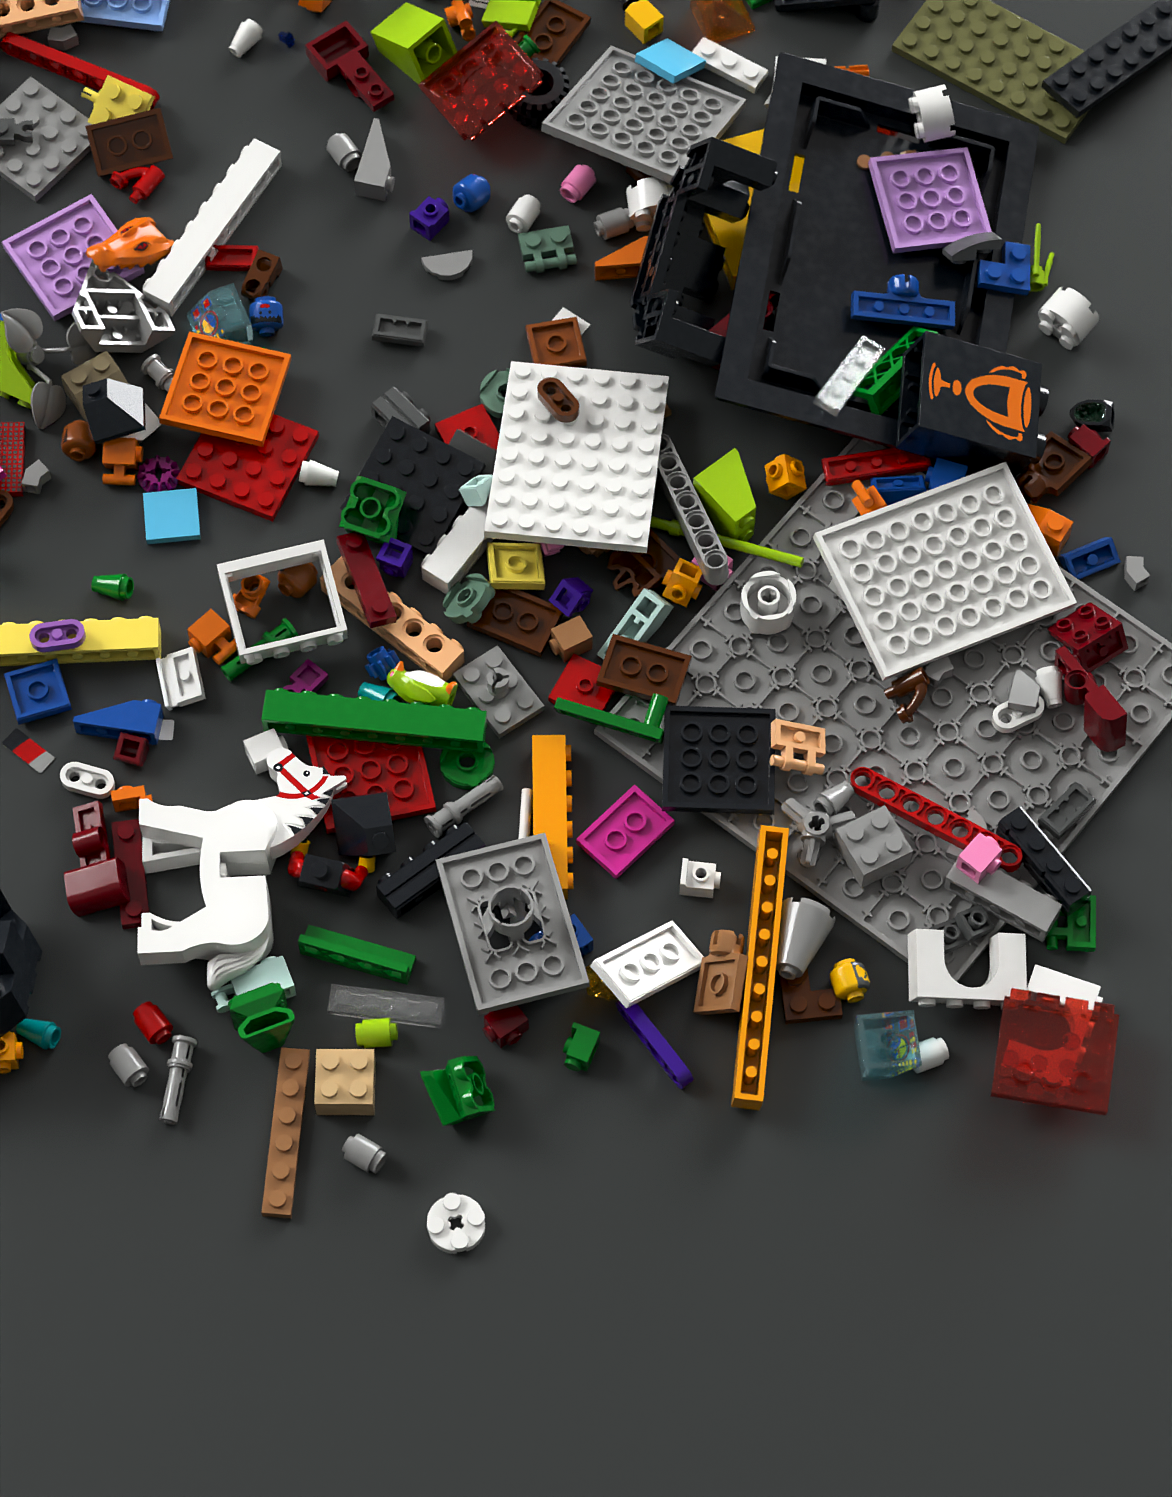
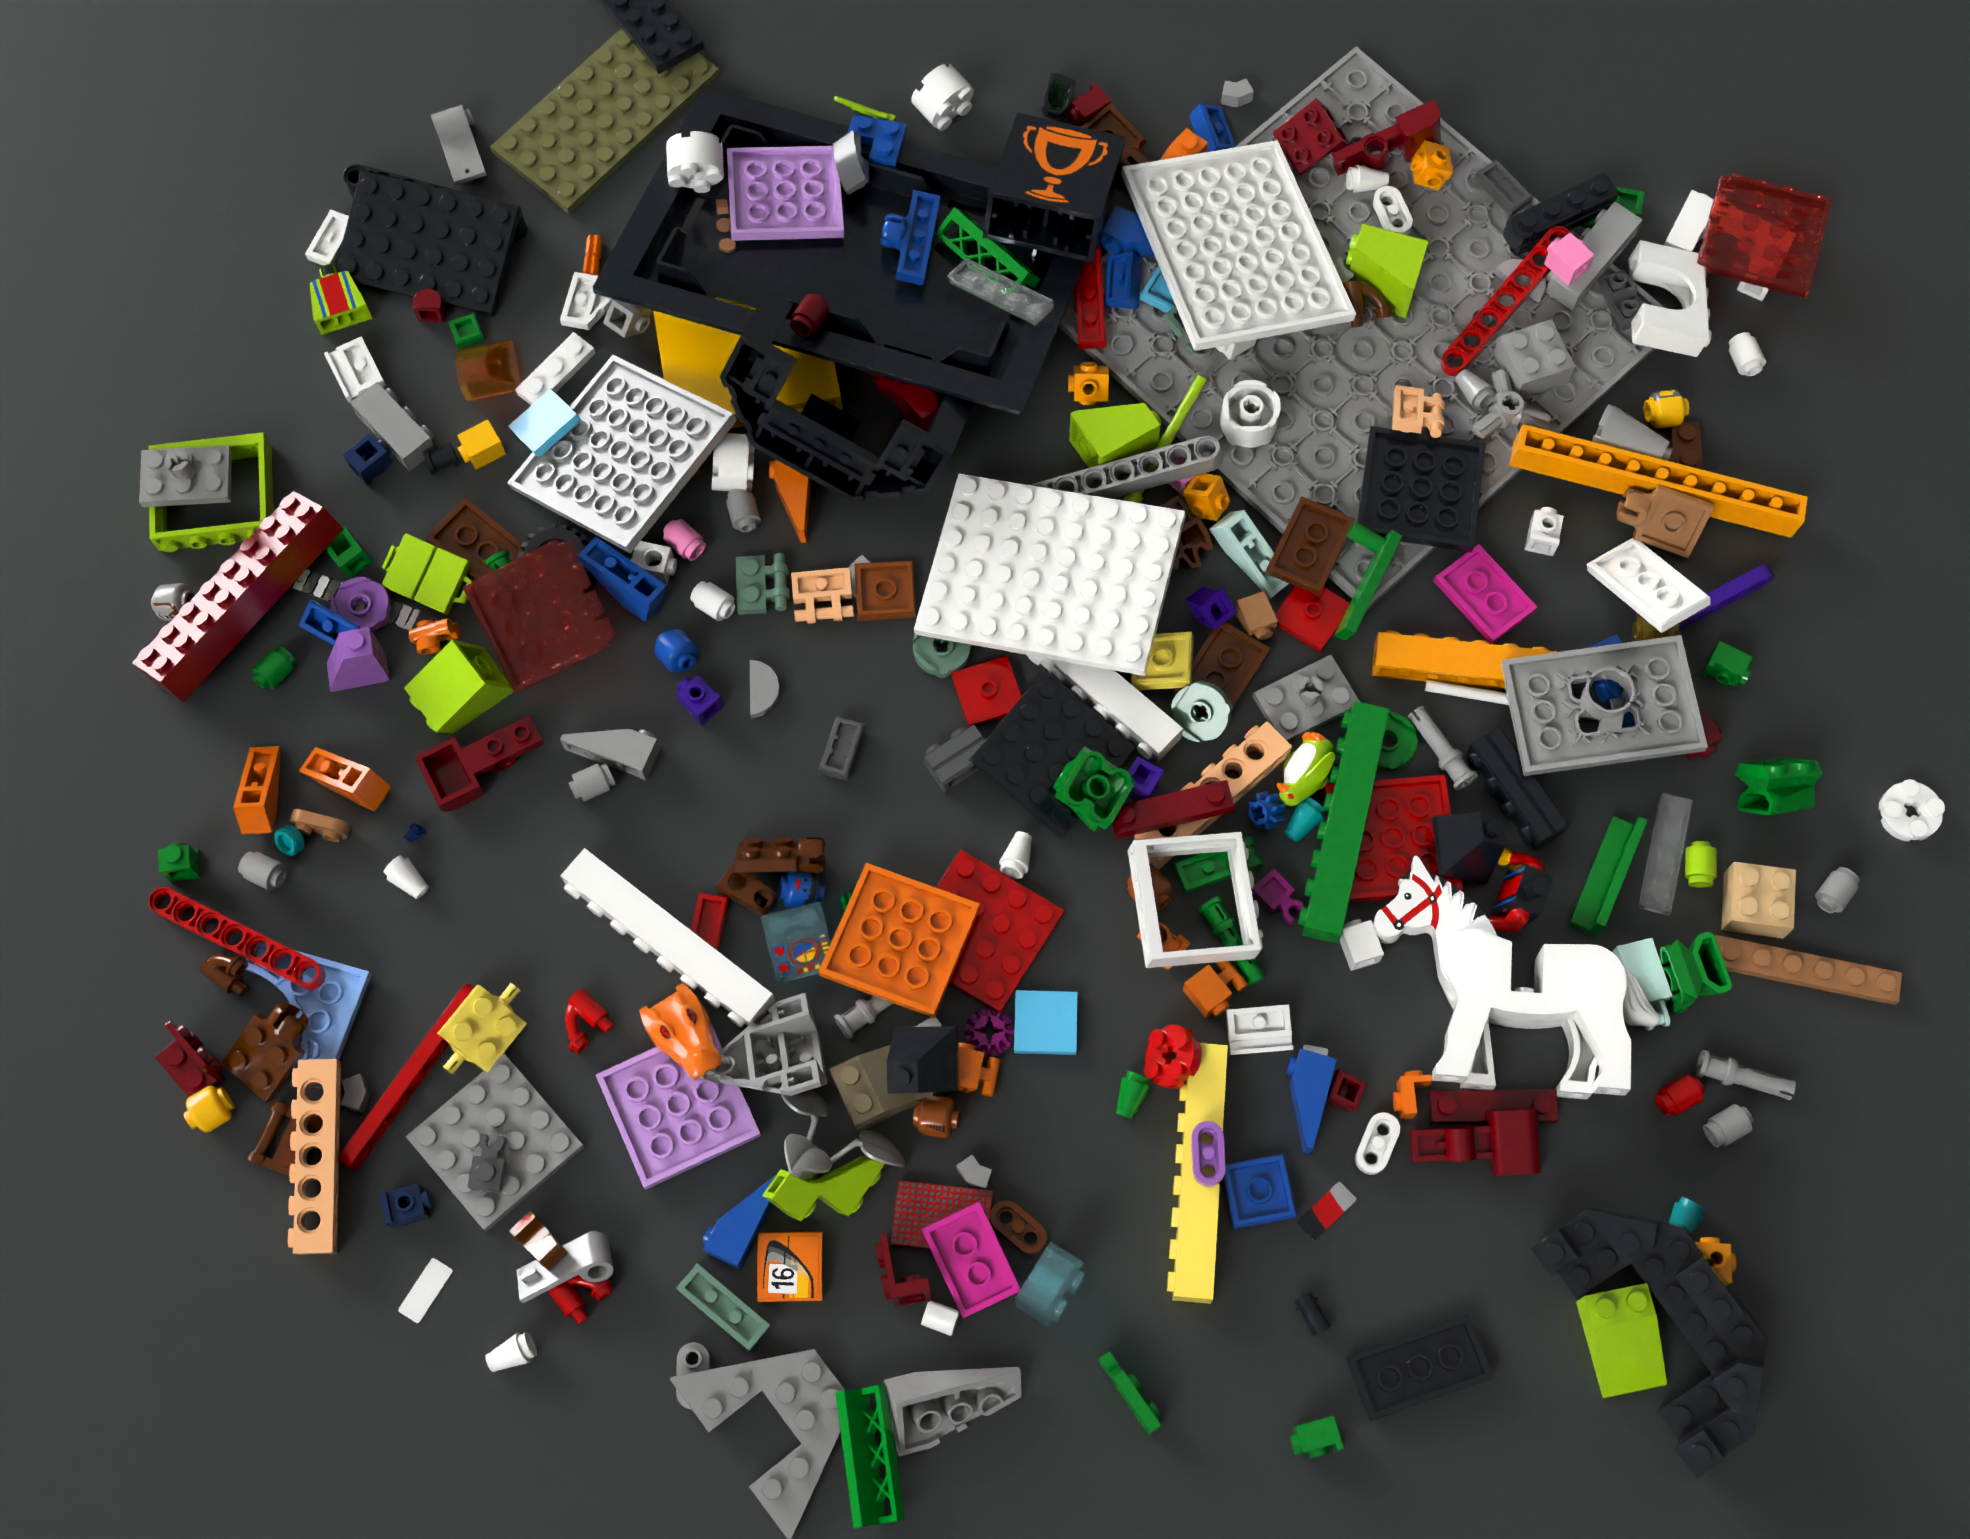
camera: 80 degrees left, 5 degrees up
(129, 142) = (534, 1021): reddish brown plate -> none
(145, 607) = (1157, 1058): none -> red plate
(290, 290) = (780, 855): none -> reddish brown plate
(320, 617) = (1212, 867): none -> green plate
(476, 449) = (1020, 678): dark grey slope -> none
(476, 490) = (1077, 679): light aqua slope -> none
(525, 140) = (624, 579): none -> blue slope
(550, 294) = (822, 586): none -> light nougat plate
(554, 155) = (647, 552): none -> white brick
(561, 401) = (984, 577): reddish brown plate -> none
(780, 216) = (809, 315): none -> dark red brick
(867, 499) = (1151, 300): orange brick -> none
(886, 1044) = (1742, 383): clear light blue slope -> none
(945, 706) = (1387, 263): none -> lime slope
(1024, 693) = (1376, 199): light grey slope -> none
(1072, 738) = (1431, 165): none -> light orange brick

